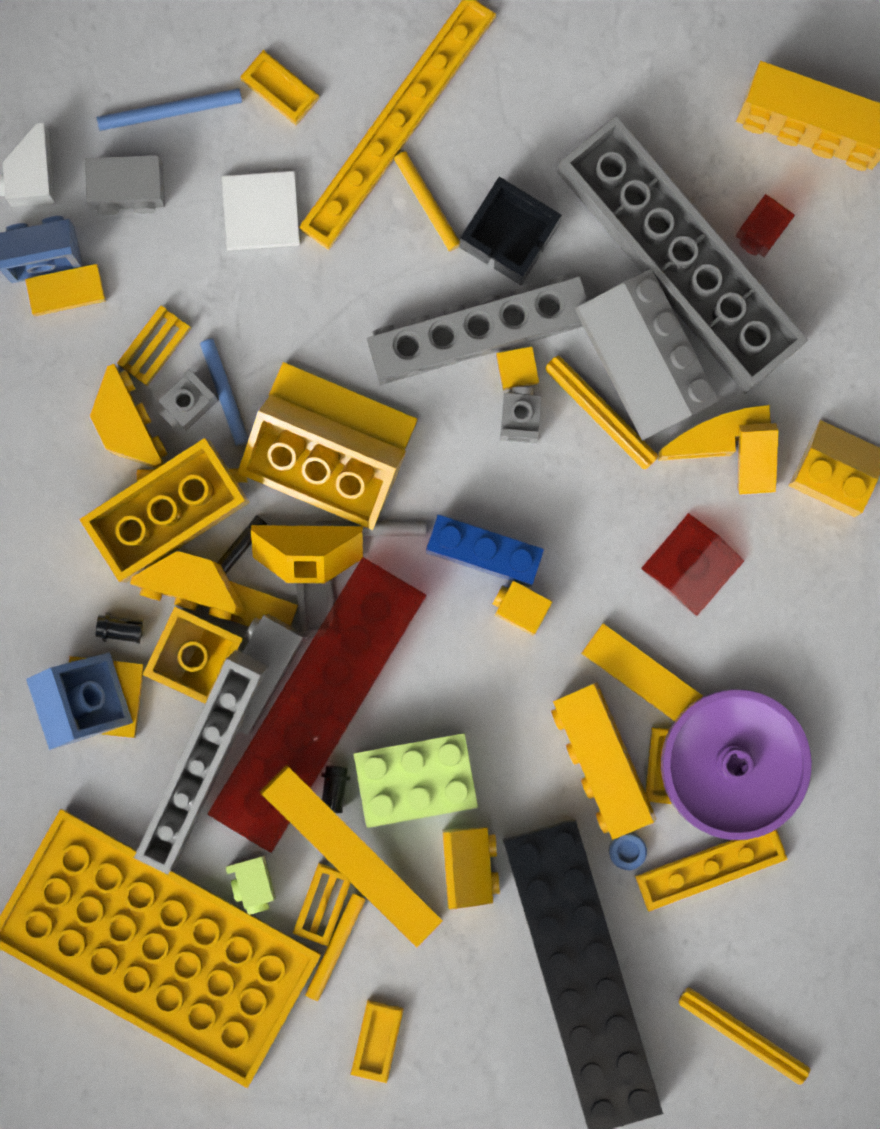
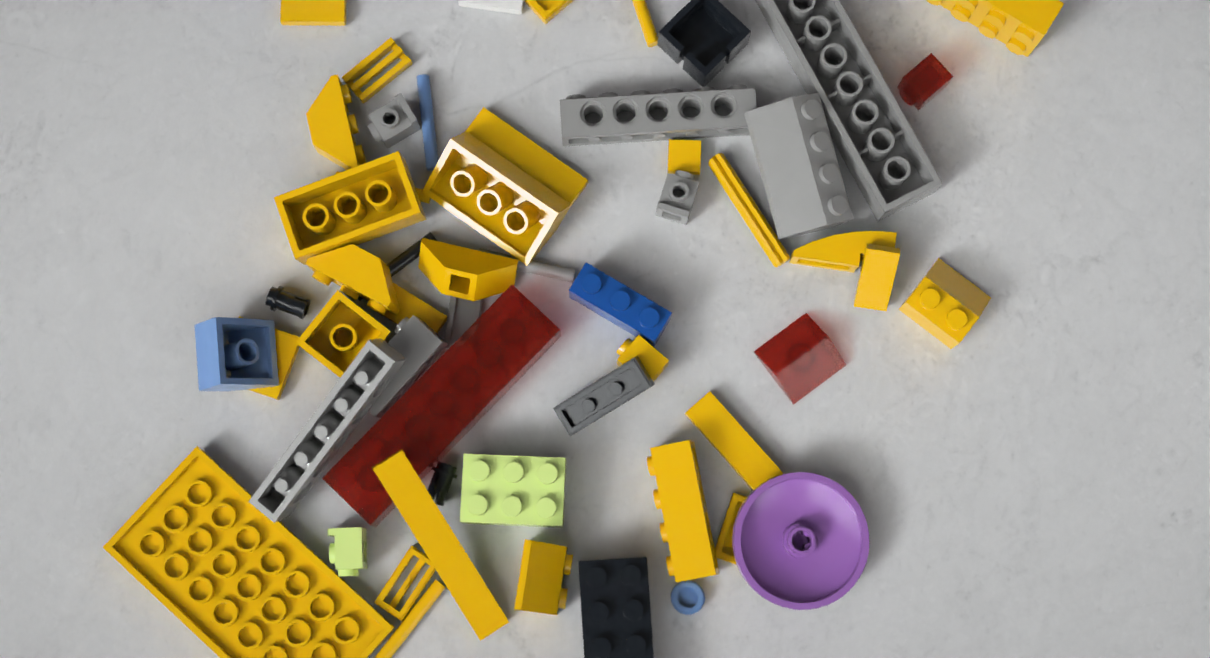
camera: 15 degrees right, 5 degrees down
(490, 655) = (604, 396): none -> tile
(708, 869) = (757, 629): yellow tile -> none

